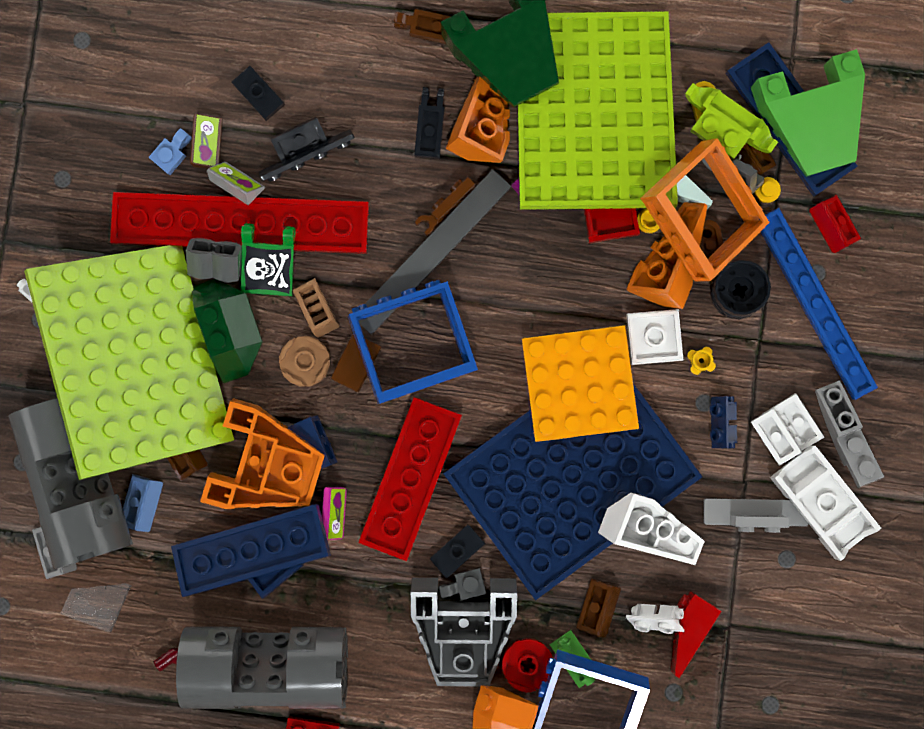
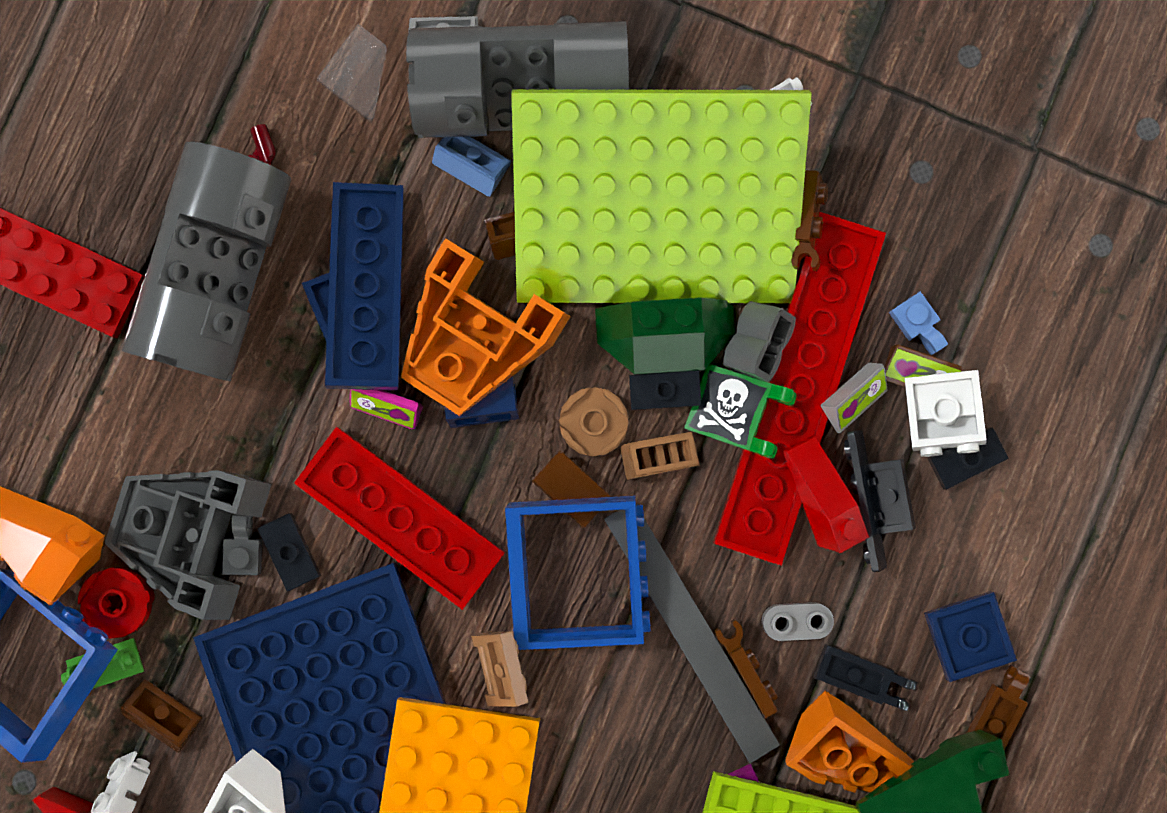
camera: 105 degrees right, 0 degrees up
(120, 245) = (811, 226): none -> reddish brown plate
(229, 117) = (945, 413): none -> white plate
(268, 316) = (665, 390): none -> black plate
(311, 184) = (825, 498): none -> red slope
(381, 59) = (970, 636): none -> dark blue plate
(404, 179) = (798, 621): none -> light grey plate
(493, 375) = (501, 668): none -> medium nougat plate

